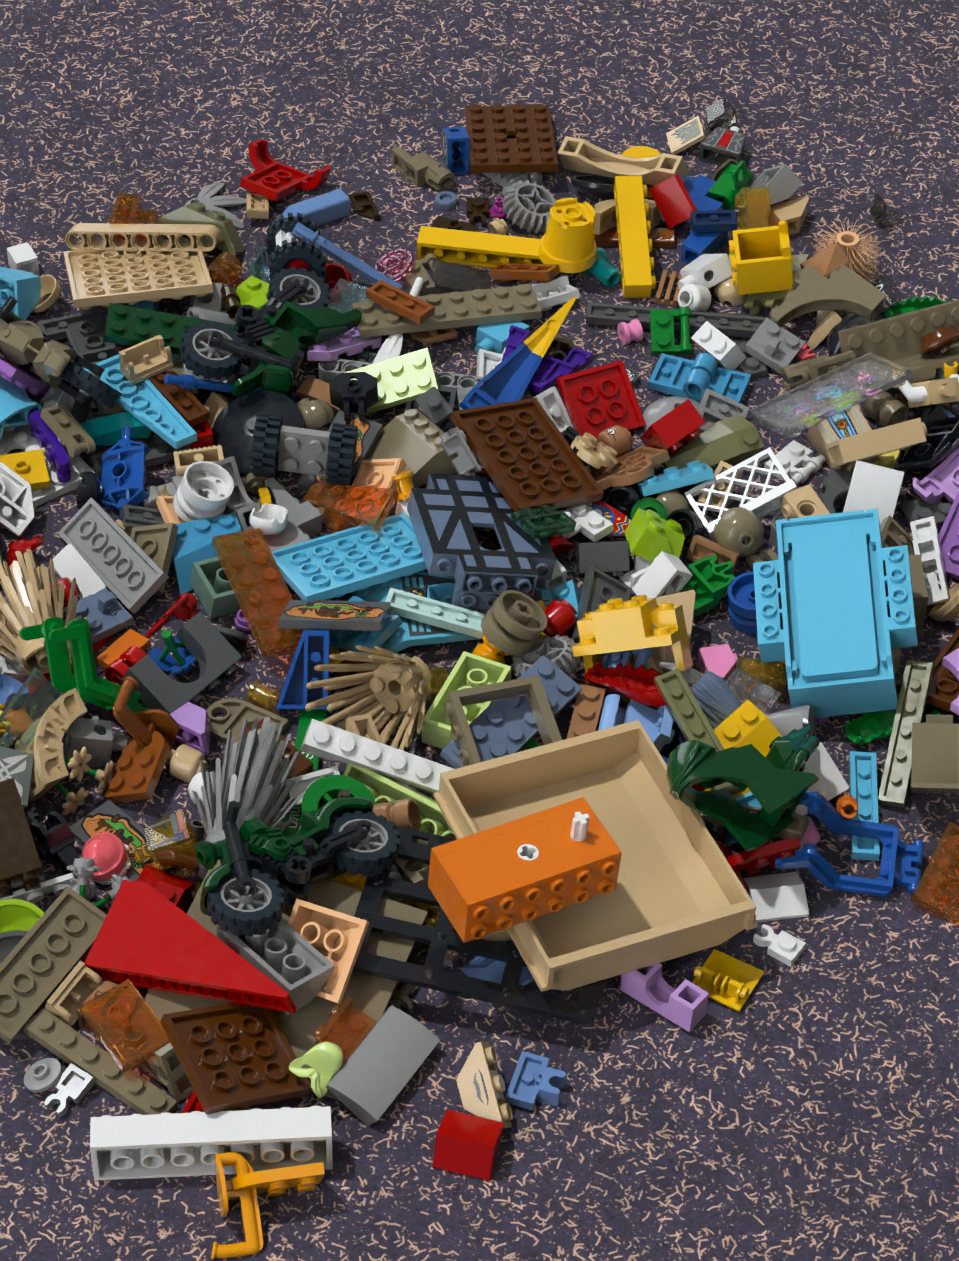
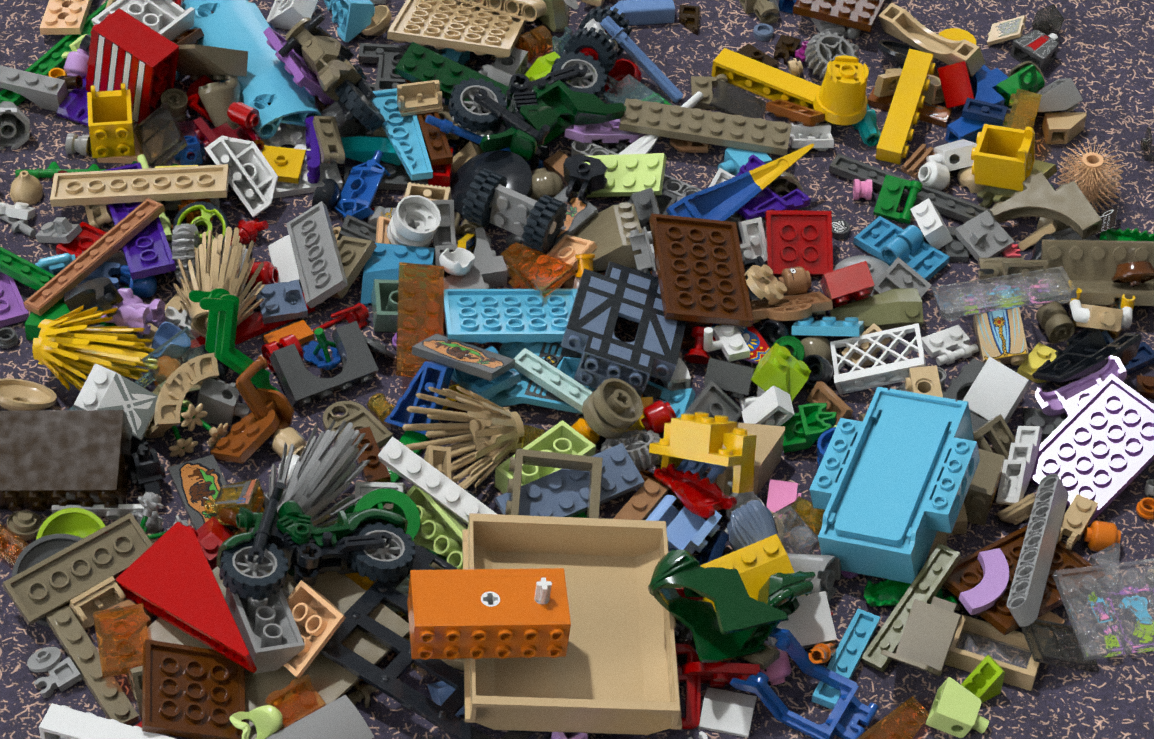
camera: 20 degrees right, 0 degrees up
(109, 855) = (182, 499): coral hair -> none
(194, 727) = (307, 413): medium lavender slope -> none
(230, 299) = (525, 66): dark brown pin -> none
(395, 263) = (685, 76): clear pink wheel -> none
(400, 302) = (663, 108): dark orange plate -> none
(403, 813) = (436, 540): medium nougat wheel -> none
(543, 521) = (683, 330): clear green plate -> none
(689, 715) = (716, 529): olive plate -> none
(739, 531) = (858, 388): dark tan cylinder -> none
(828, 259) = (1063, 173): medium nougat slope -> none
(876, 442) = (1019, 346): tan piece -> none

